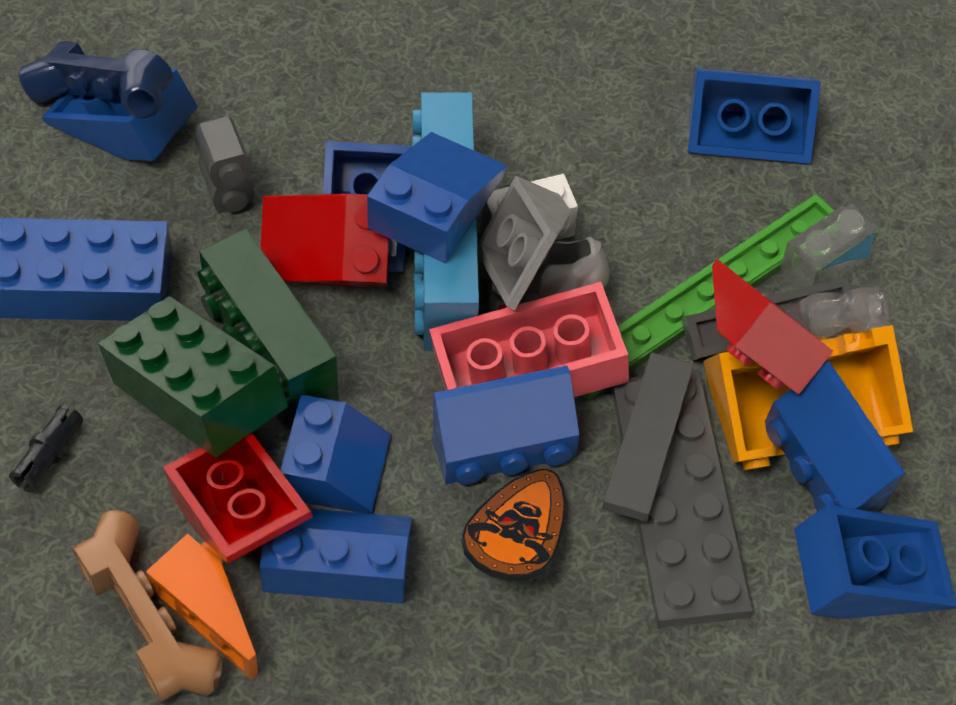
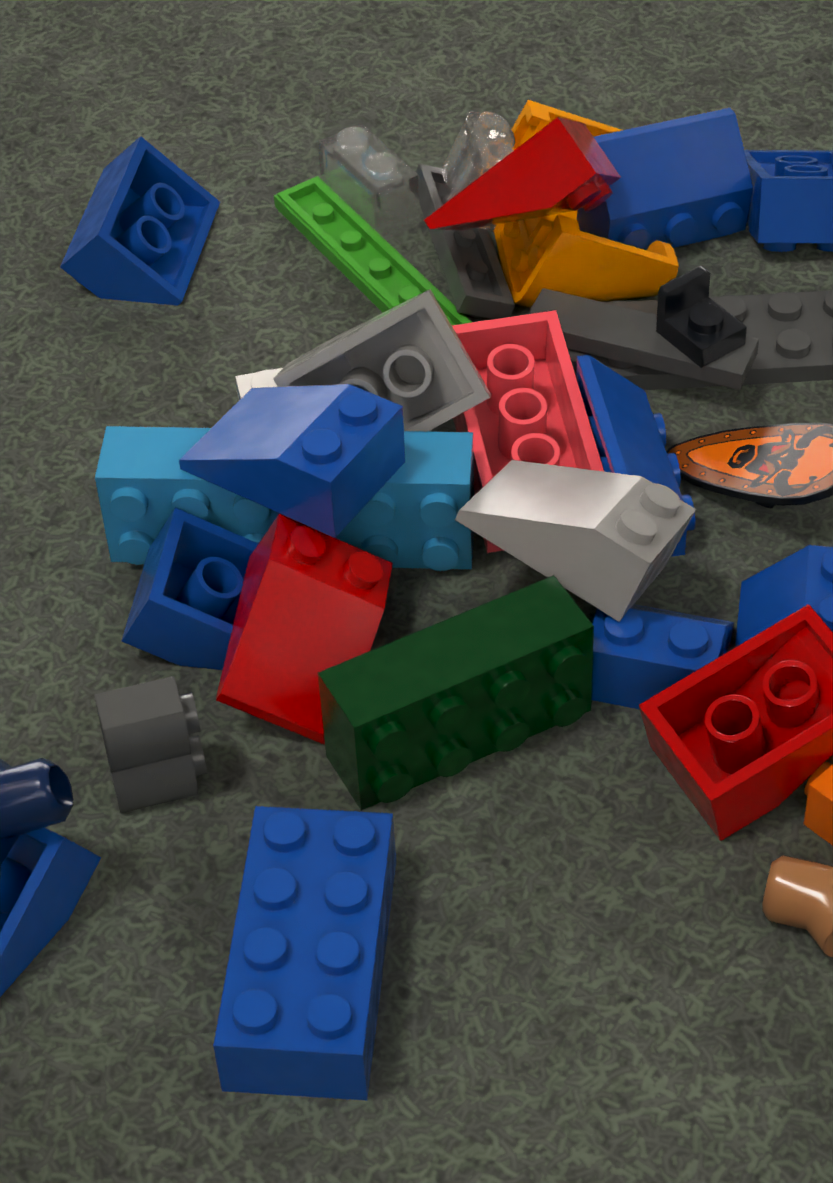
camera: 80 degrees left, 10 degrees down
(46, 448) = (638, 992): black pin -> none
(193, 375) = (551, 766): dark green brick -> none
(390, 371) = (586, 527): none -> light grey slope
(650, 462) = (695, 321): none -> black bracket

